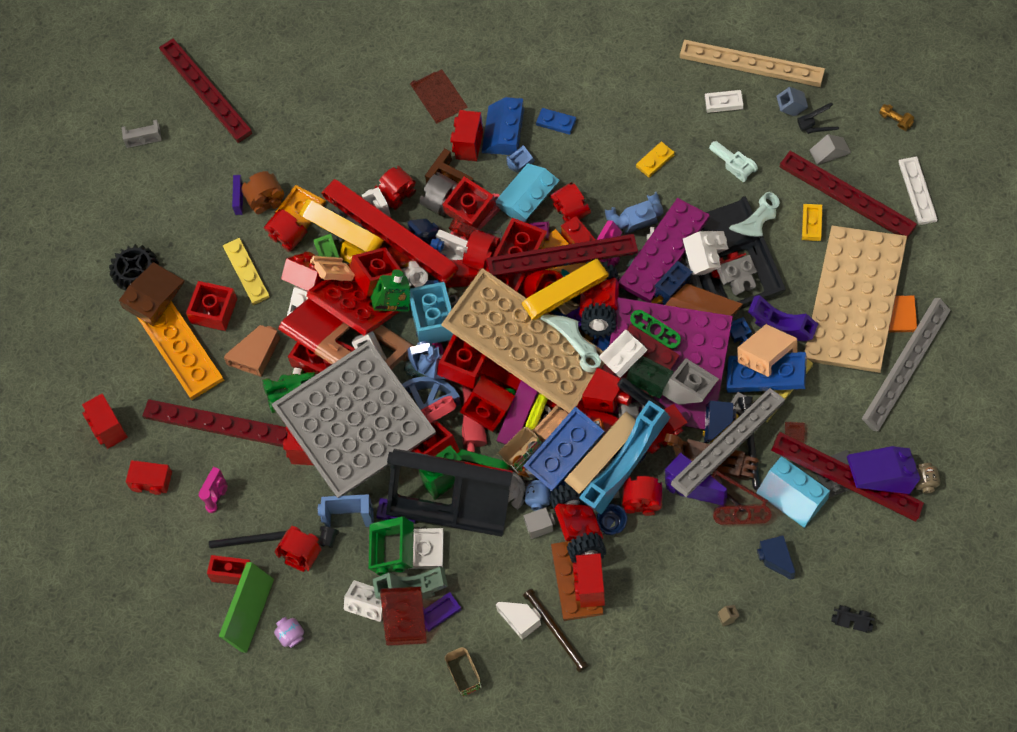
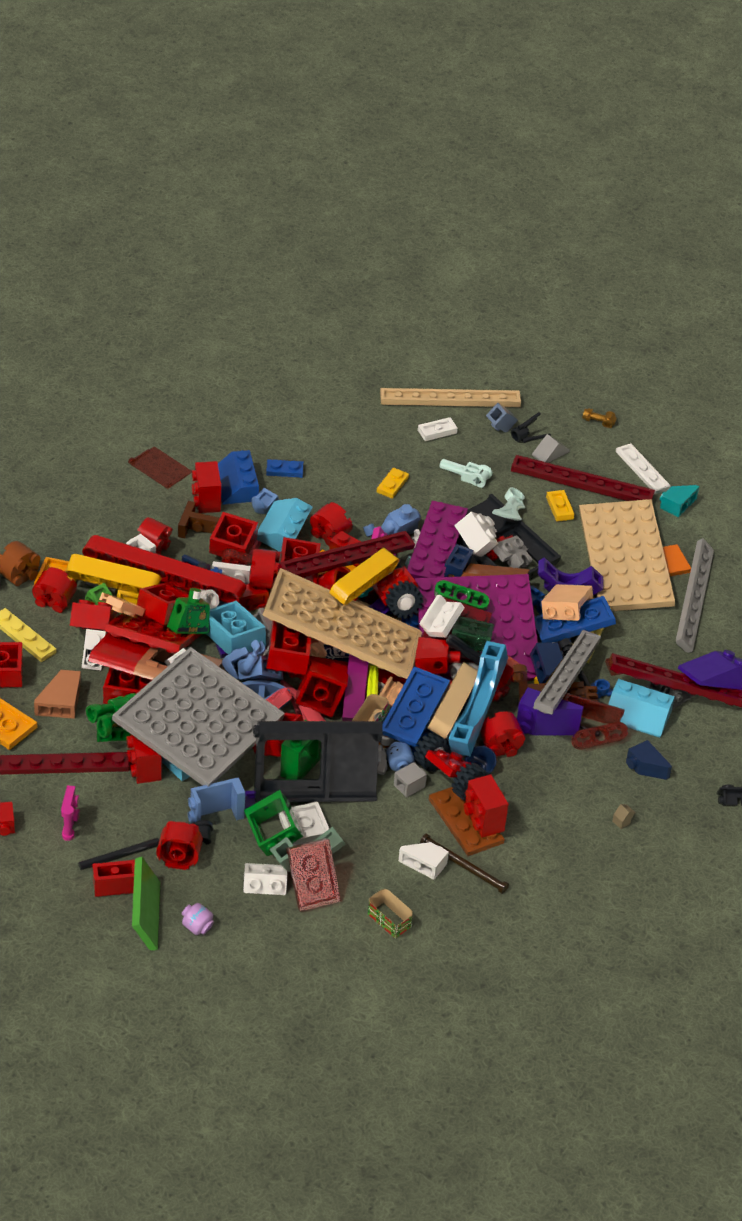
camera: 30 degrees left, 20 degrees down
(437, 191) = (198, 537): flat silver brick -> none
(440, 611) = (346, 869): dark purple tile -> none
(569, 329) = (408, 632): light aqua piece -> none
(689, 384) = (511, 634): light grey slope -> none
(762, 452) = (603, 687): none -> blue plate
(937, 239) = (678, 498): none -> teal slope

